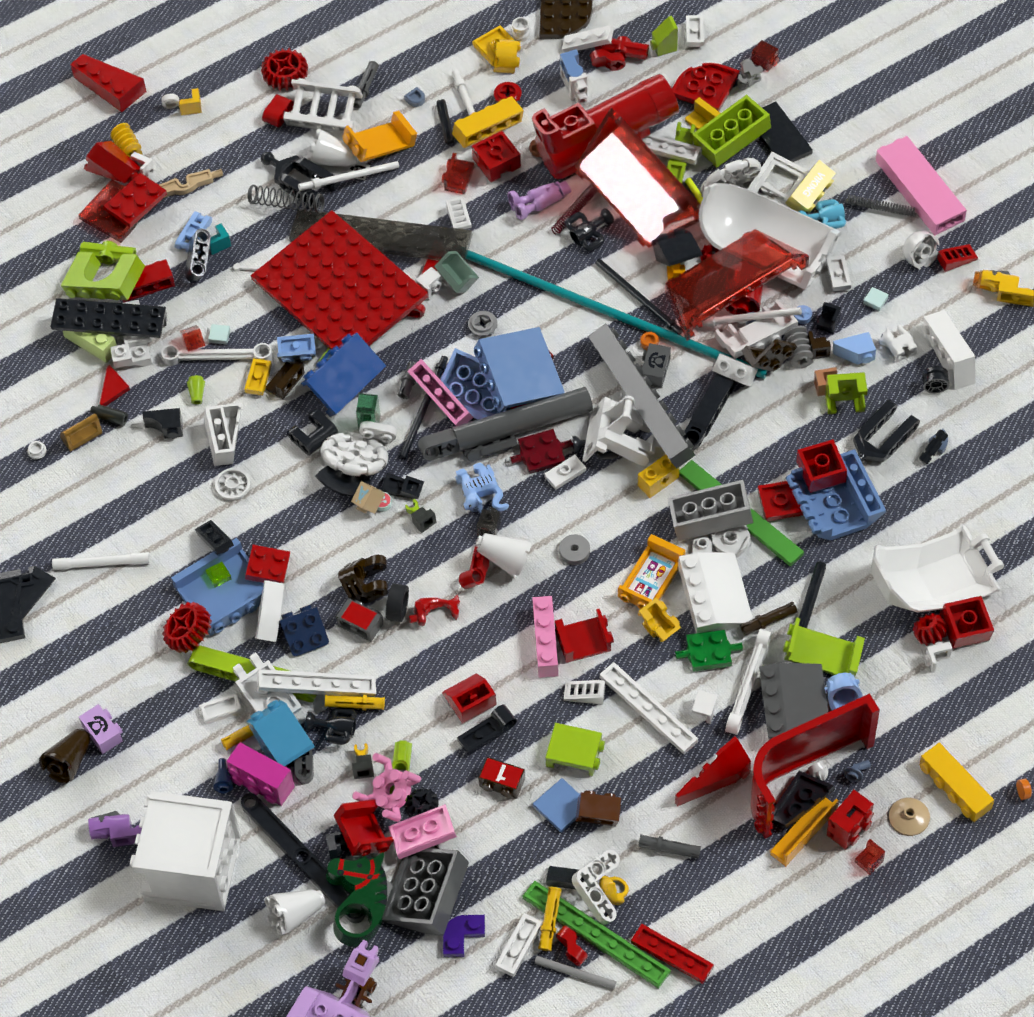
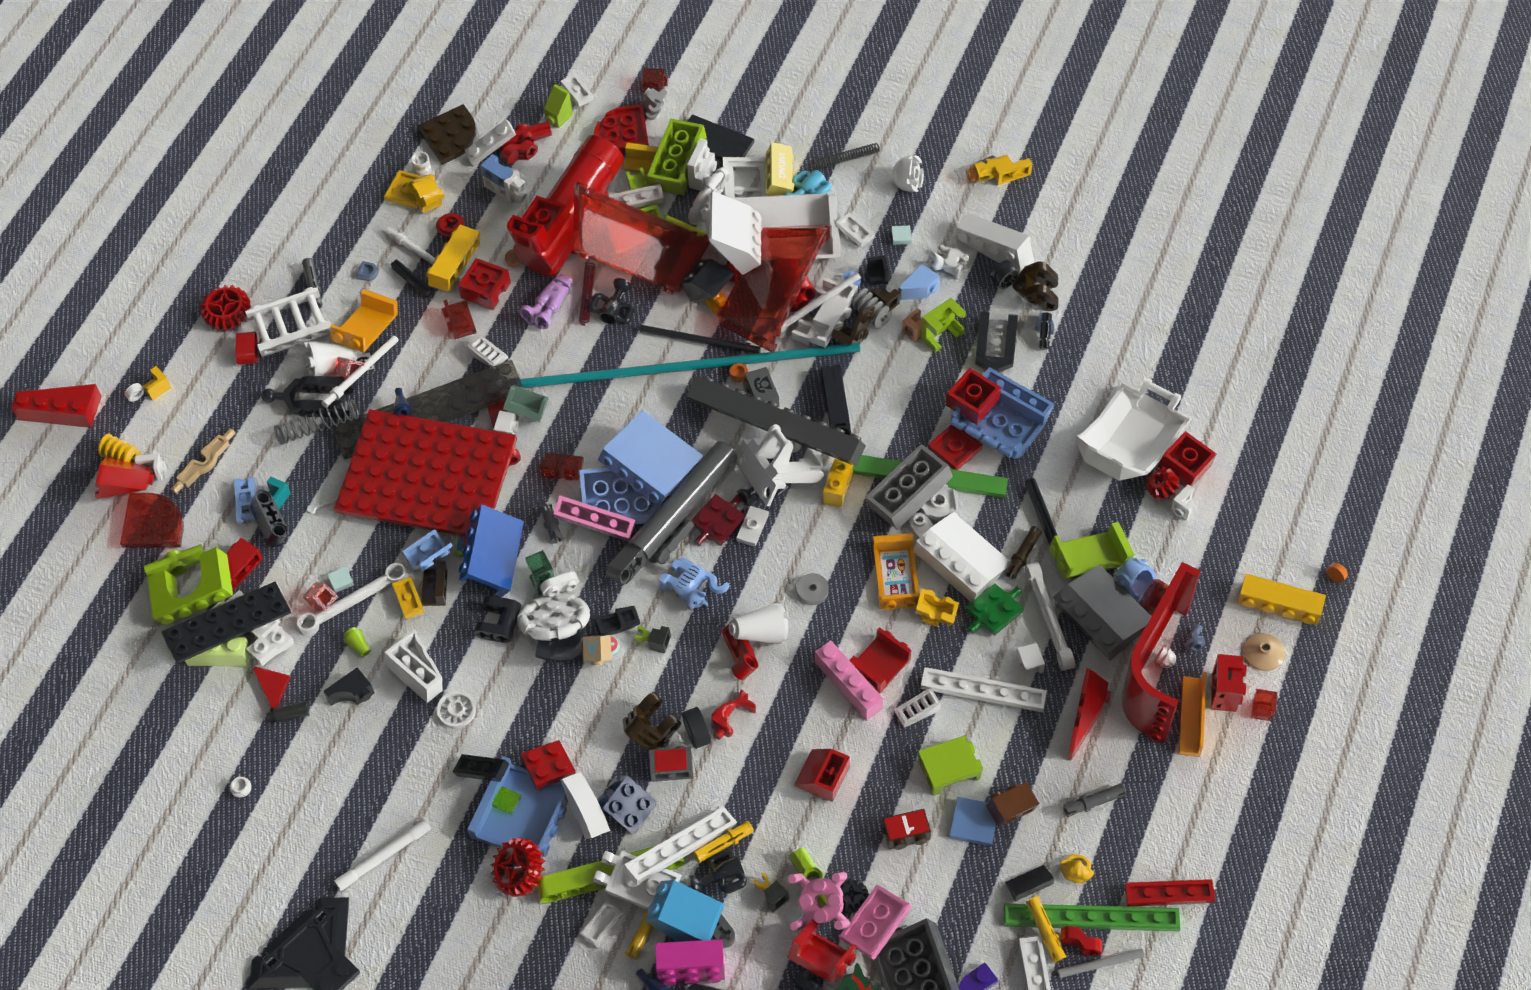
camera: 35 degrees left, 0 degrees up
(81, 432) = (274, 744): pearl gold tile -> none
(135, 200) = (168, 500): red plate -> none
(340, 166) = (346, 366): none -> clear red panel
(358, 220) = (401, 405): none -> dark blue cone
(440, 368) = (571, 494): black bar -> none
(450, 338) = (561, 466): none -> clear red bracket
(487, 318) = (580, 430): light grey gear -> none
(488, 521) = (721, 609): clear smoke brick -> none
(488, 730) = (861, 794): black plate -> none
(590, 880) = (1054, 877): white beam -> none
(723, 218) = (735, 231): none -> white slope
(735, 369) = (834, 356): white brick -> none
(746, 145) = (701, 166): none -> white plate
(800, 798) = (1172, 681): black wing -> none
(920, 185) = (866, 122): bright pink brick -> none
(943, 255) = (935, 175): red slope -> none
(945, 403) = (1040, 293): none -> dark brown piece

